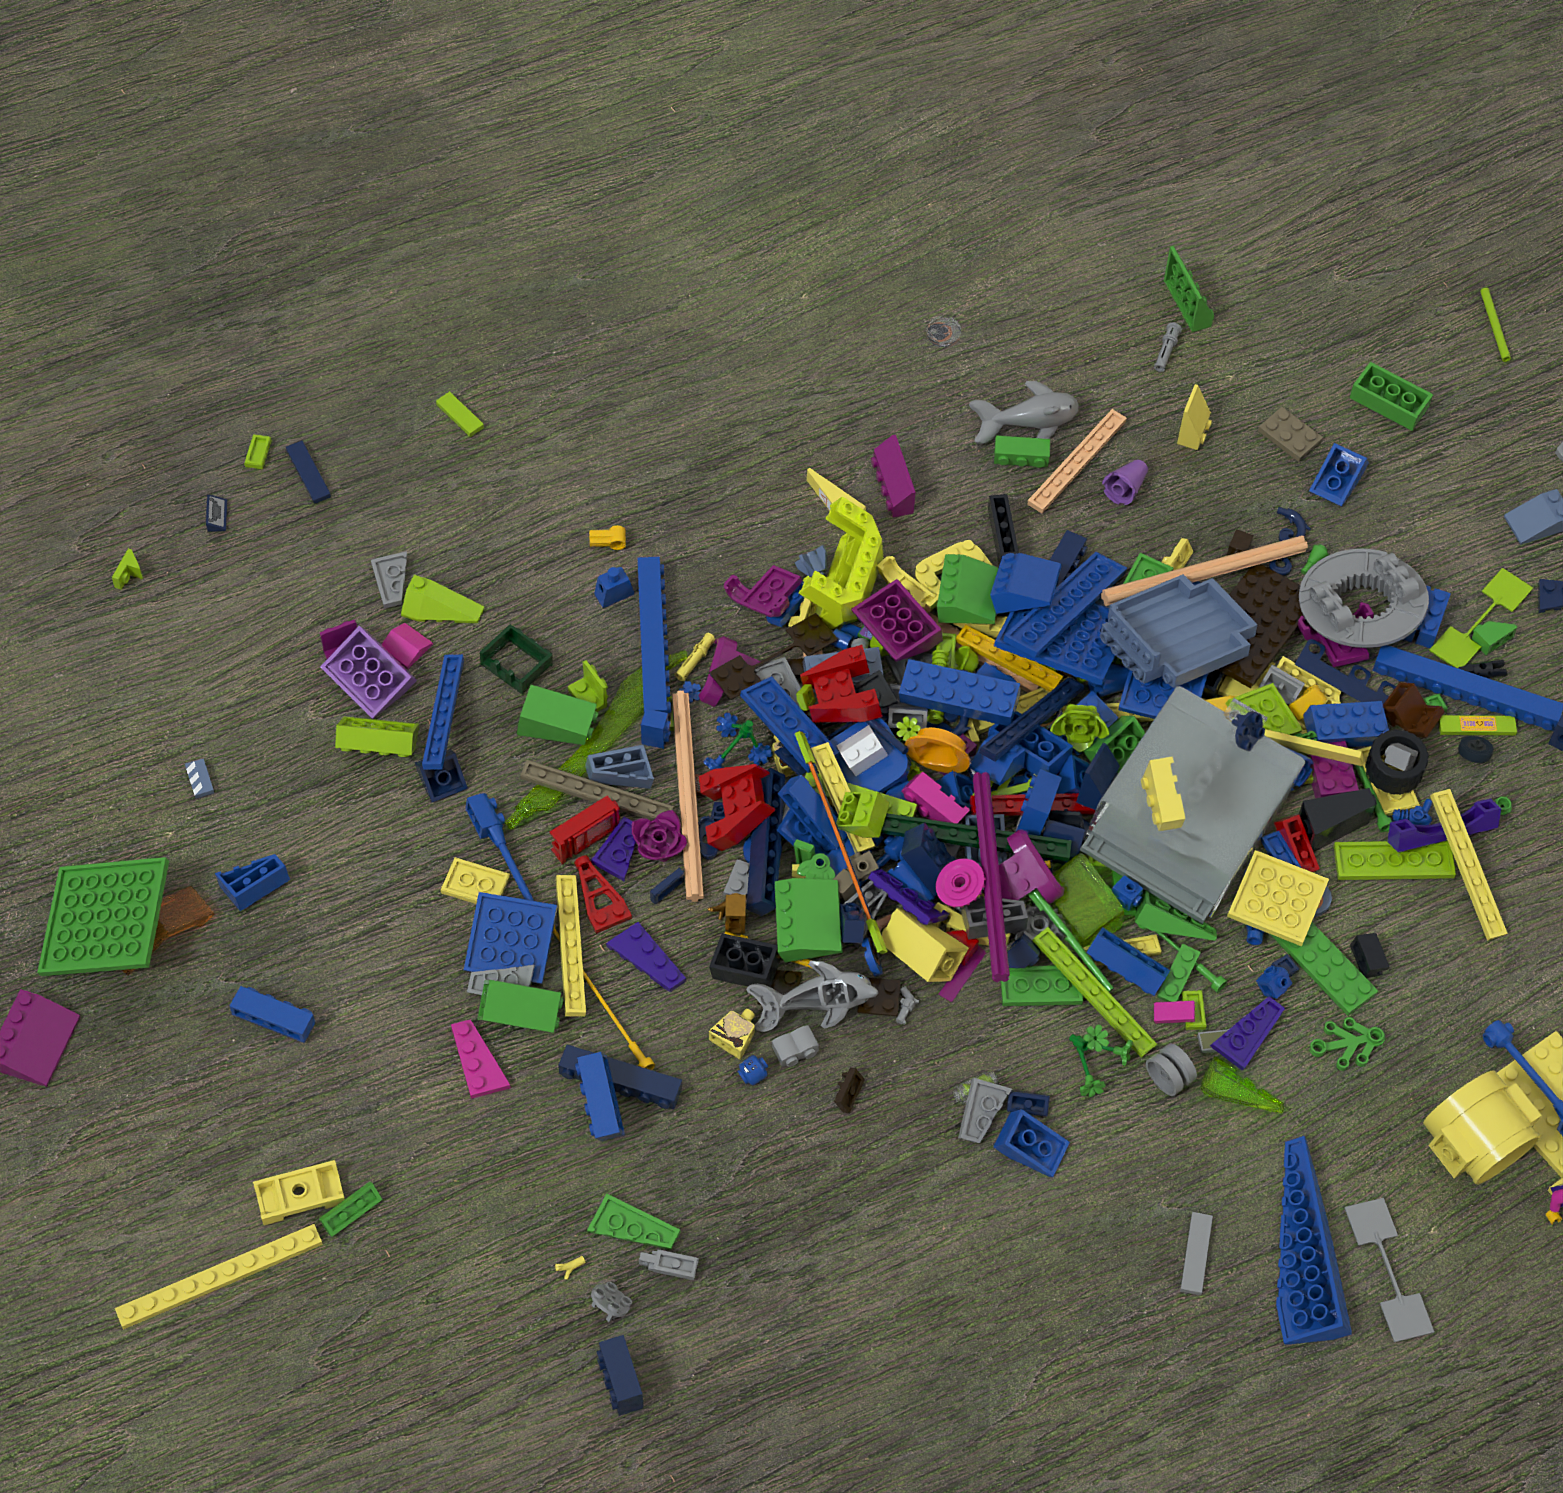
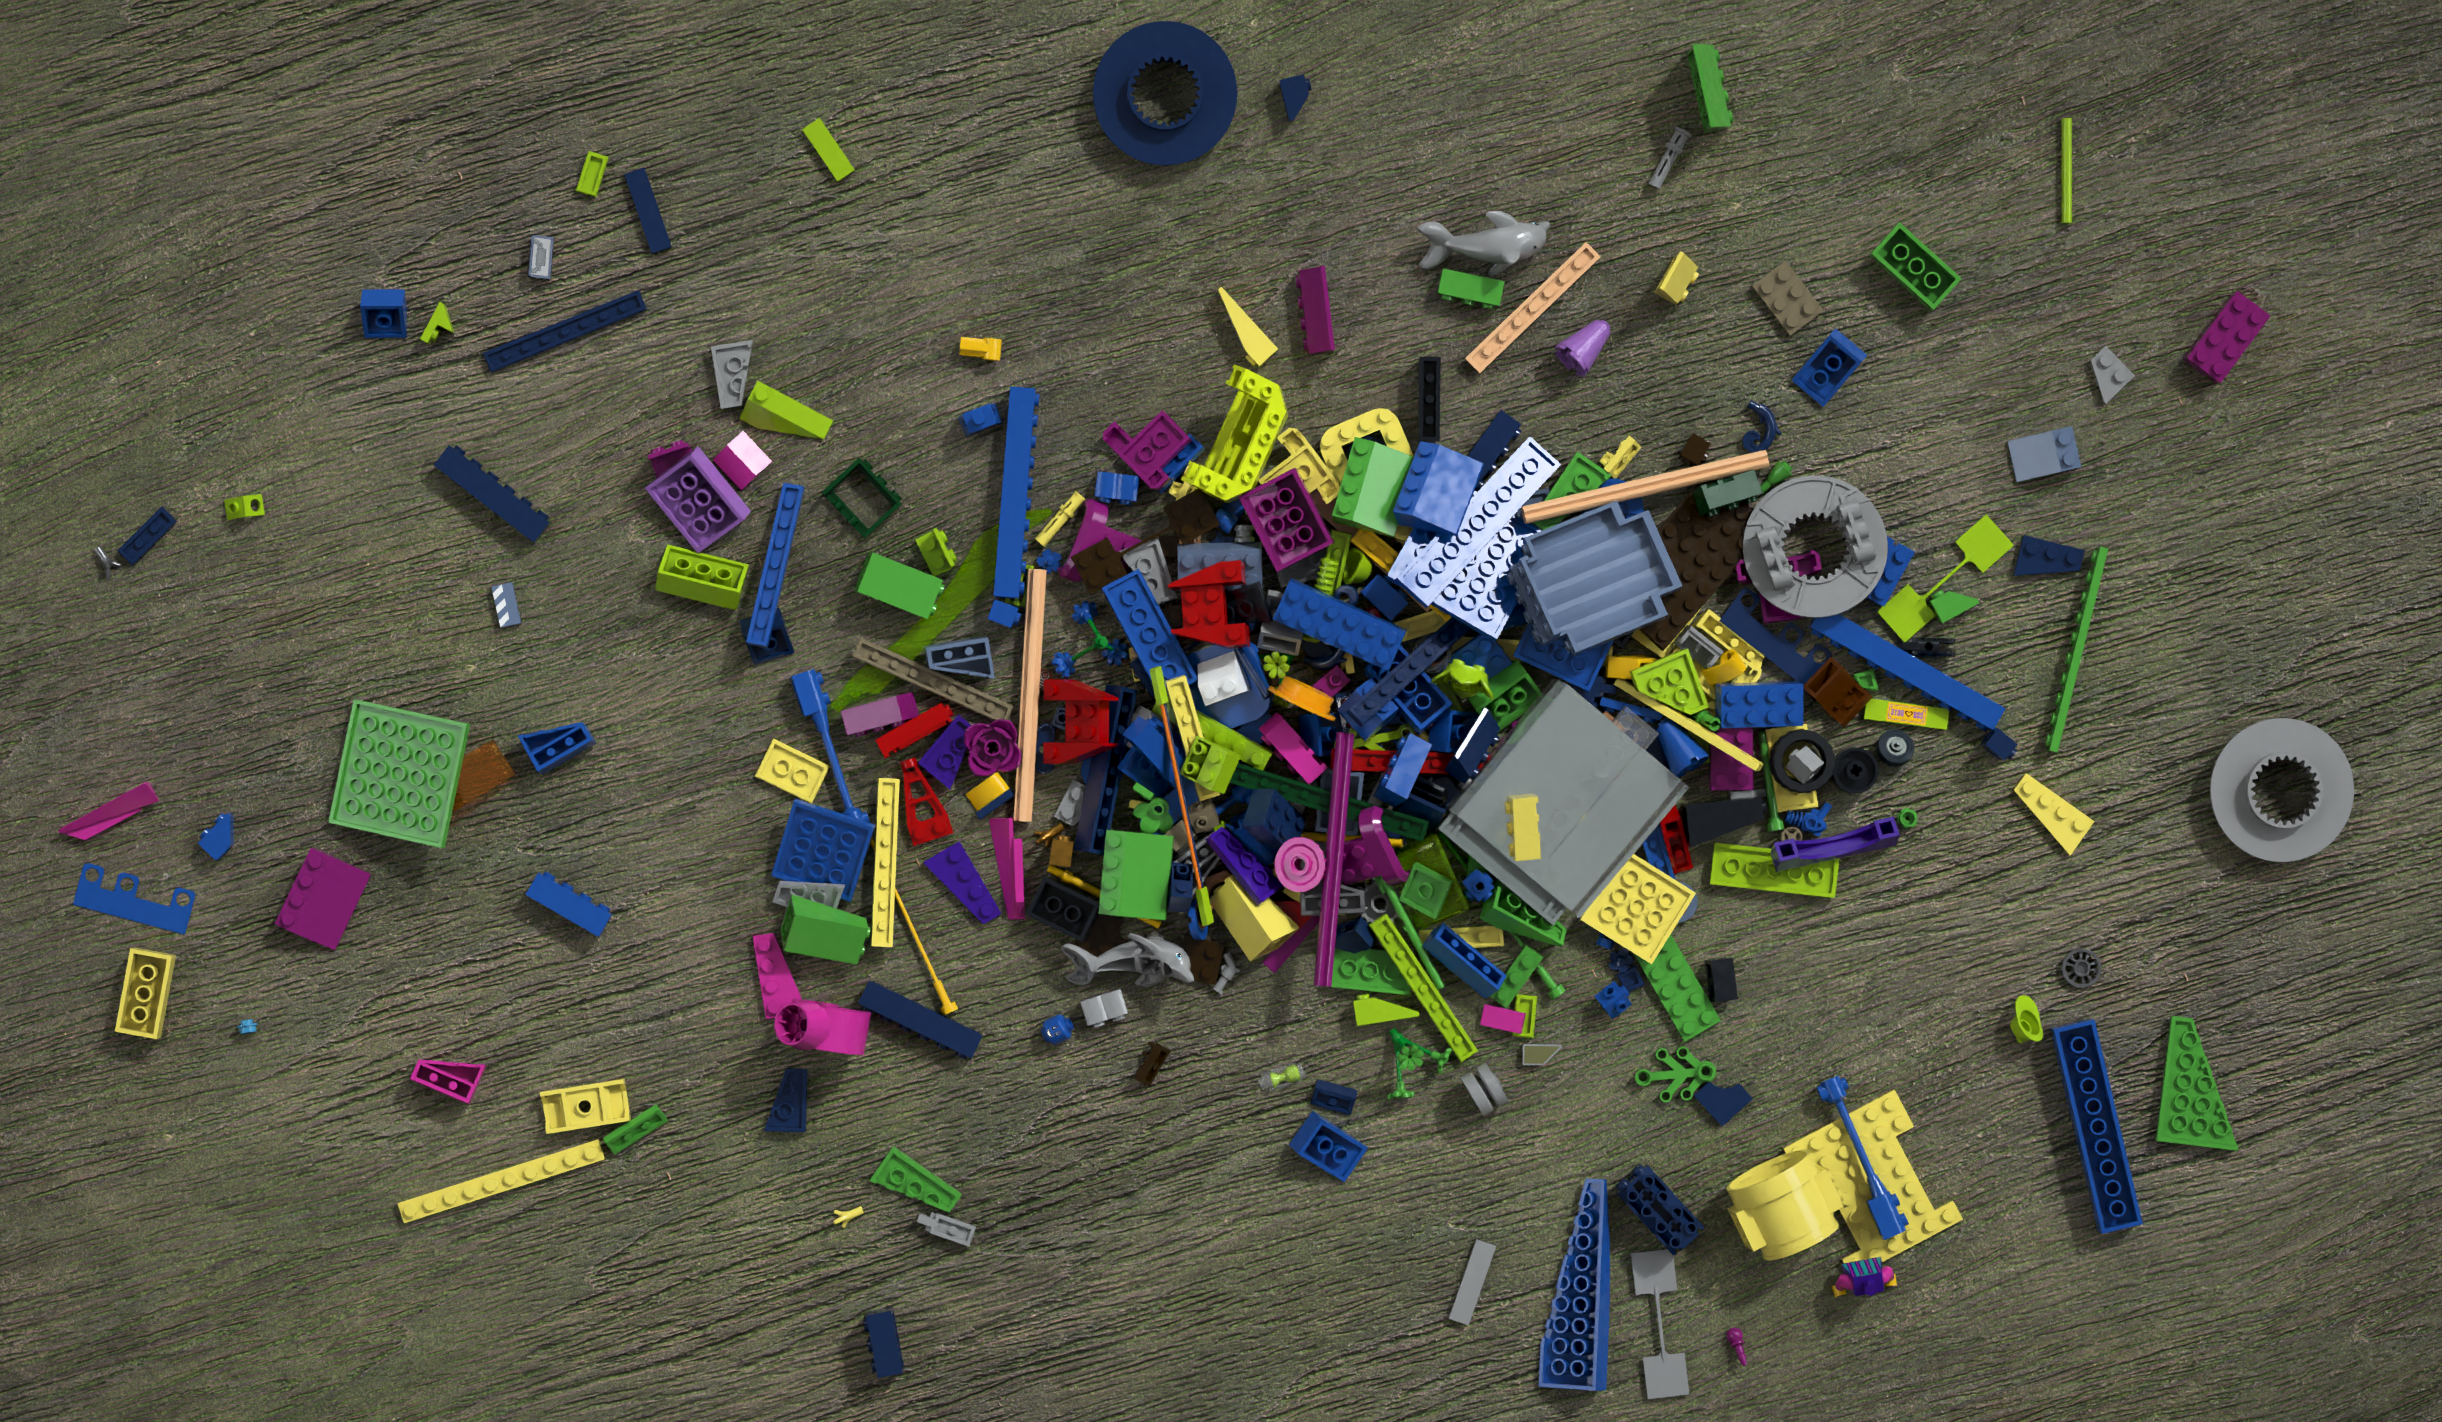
camera: 10 degrees right, 30 degrees up
(79, 567) = (384, 313): none -> blue slope
(162, 1182) = (449, 1078): none -> dark pink wedge
(182, 691) = (492, 493): none -> dark blue brick
(240, 566) = (564, 331): none -> dark blue tile
(502, 1168) = (790, 1104): none -> dark blue wing
(525, 1075) = (822, 1027): none -> dark pink animal
(537, 825) = (879, 713): none -> magenta wedge
(600, 1096) = (896, 1051): blue brick -> none
(610, 1300) = (890, 1268): light grey plate -> none
(657, 875) = (987, 791): none -> yellow panel
(688, 937) = (1010, 865): none -> dark pink wedge
(734, 1032) = (1044, 983): torso -> none
(741, 310) = (1177, 45): none -> dark blue piece
(742, 626) = (1117, 487): none -> blue brick
(805, 697) = (1171, 604): lime plate -> none
(813, 561) = (1208, 414): sand blue brick -> none
(847, 334) = (1294, 94): none -> dark blue slope
(943, 331) = (1409, 98): clear tile -> none
(981, 1107) = (1283, 1102): light grey wing -> none
(1056, 1018) = (1375, 1010): none -> lime slope
(1080, 899) = (1425, 890): none -> bright green plate
(1225, 1085) = (1545, 1110): clear neon green wedge -> none
(1246, 1036) = (1574, 1053): dark purple wing -> none
(1248, 730) = (1630, 758): dark blue plate -> none
(1274, 952) = (1620, 960): none -> dark blue plant
(1275, 566) = (1727, 493): none -> wedge
(1362, 1156) = (1658, 1208): none -> dark blue brick
(1397, 1062) = (1723, 1102): none -> dark blue tile
(1445, 769) = (1866, 772): none -> black wheel
(1465, 1273) = (1735, 1336): none -> magenta bar
(1468, 864) = (1848, 894): light yellow plate -> none

